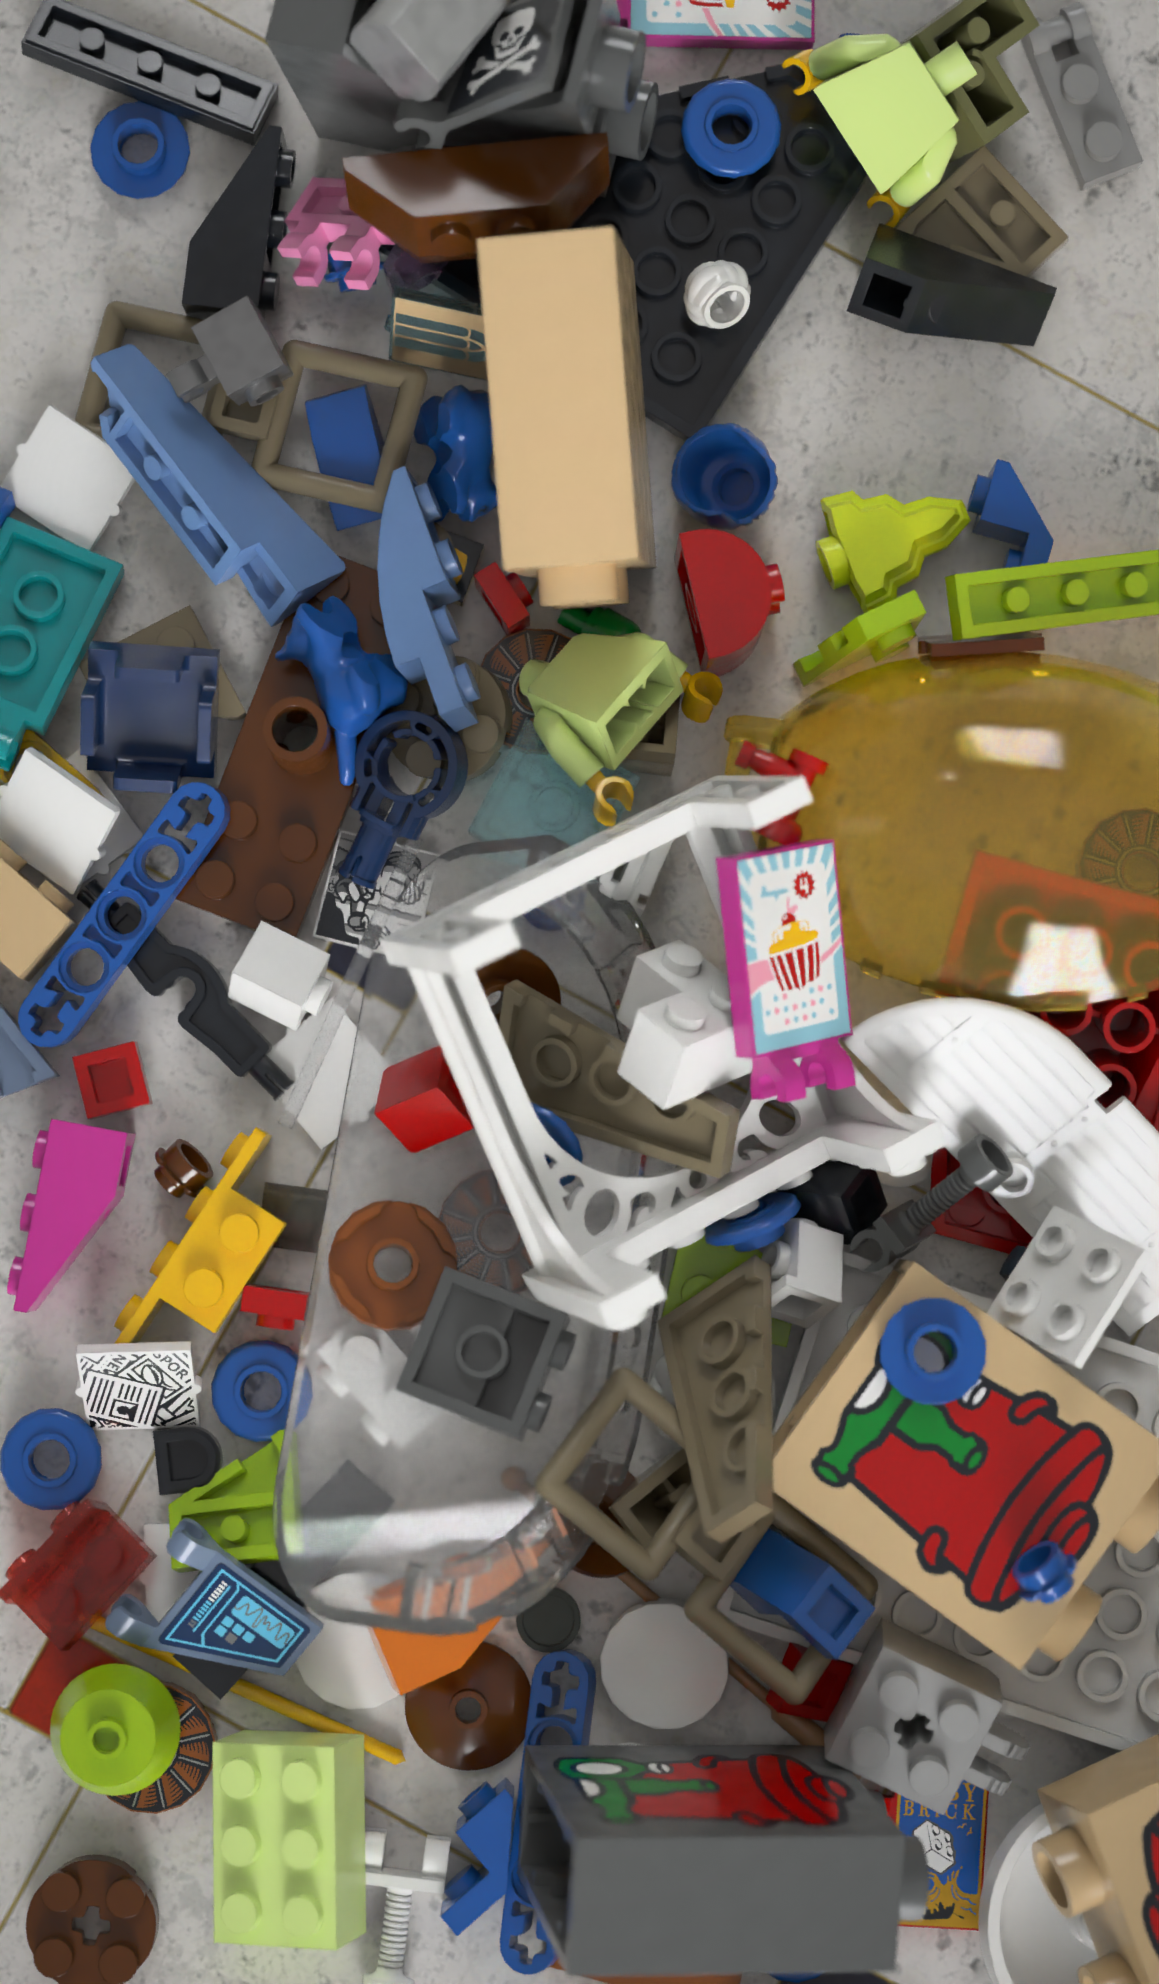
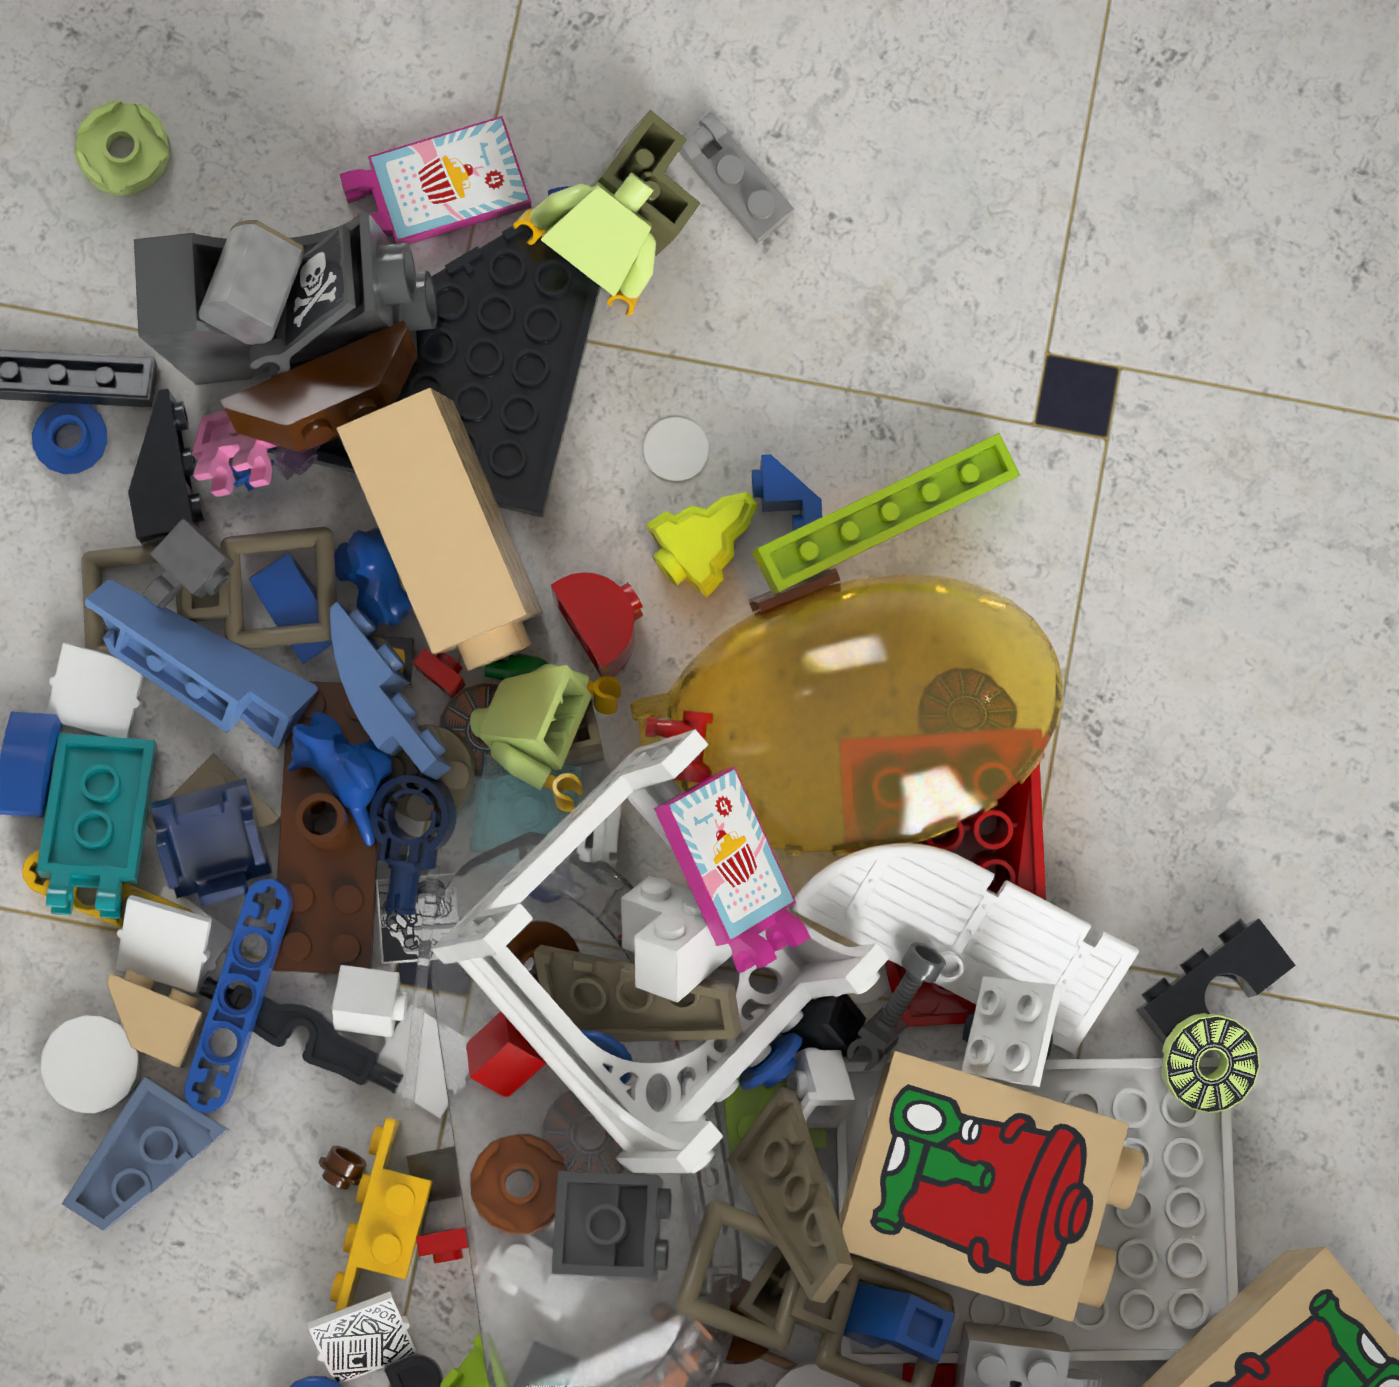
camera: 15 degrees left, 5 degrees down
(76, 1192) = (270, 1209): dark pink slope -> none
(112, 1080) = (269, 1119): red plate -> none
(229, 1385) = (429, 1312): blue piece -> none
(437, 333) = (328, 498): piece -> none
(717, 294) = (521, 404): white piece -> none
(724, 476) = (570, 532): blue hair -> none
(736, 99) = (488, 261): blue piece -> none
(877, 633) = (718, 606): lime wing -> none
(890, 417) = (676, 449): none -> white sticker
(902, 1335) = (904, 1105): blue piece -> none
(946, 293) = (685, 349): black slope -> none
(987, 217) = (696, 289): dark tan wing -> none
(1044, 1572) = (1064, 1244): blue plate -> none

